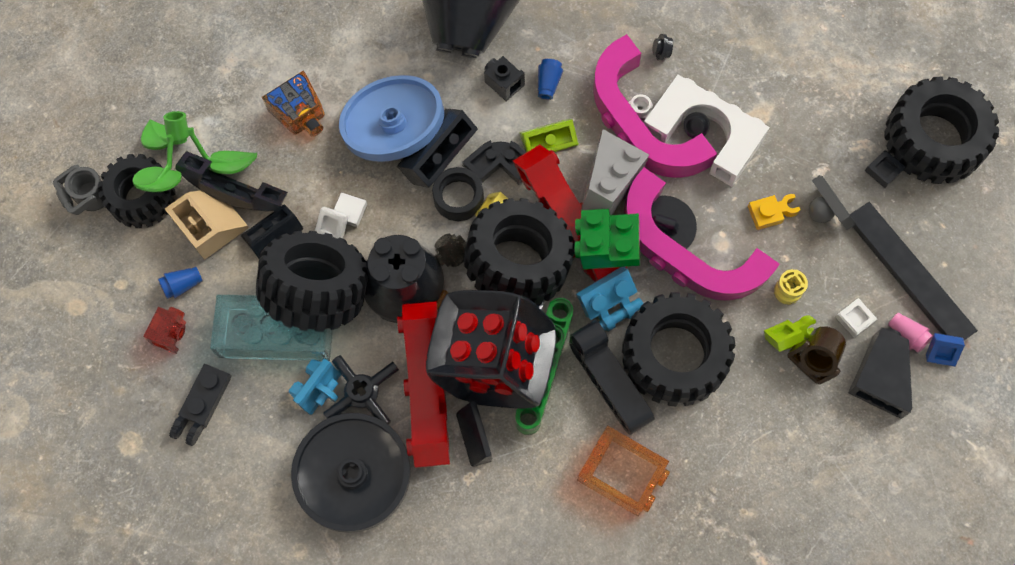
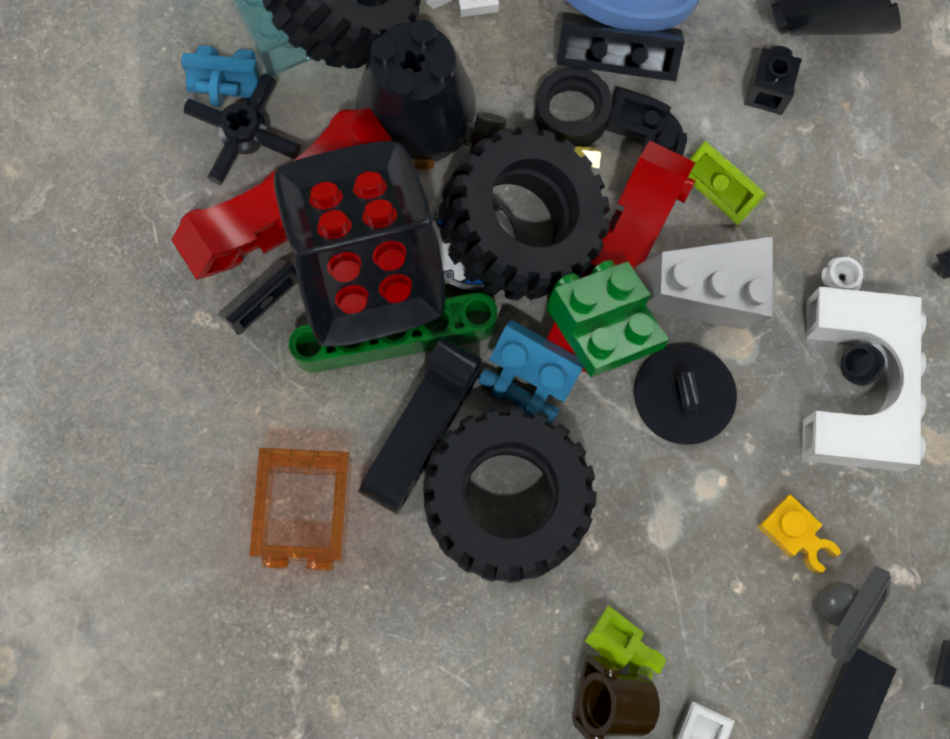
camera: 55 degrees right, 5 degrees up
(350, 472) = (126, 168): black dish -> none
(548, 78) = (810, 136): blue cone -> none
(616, 113) = (786, 355): dark pink arch -> none
(681, 263) = (695, 339): dark pink arch -> none
(787, 292) = (684, 613): light yellow wheel -> none

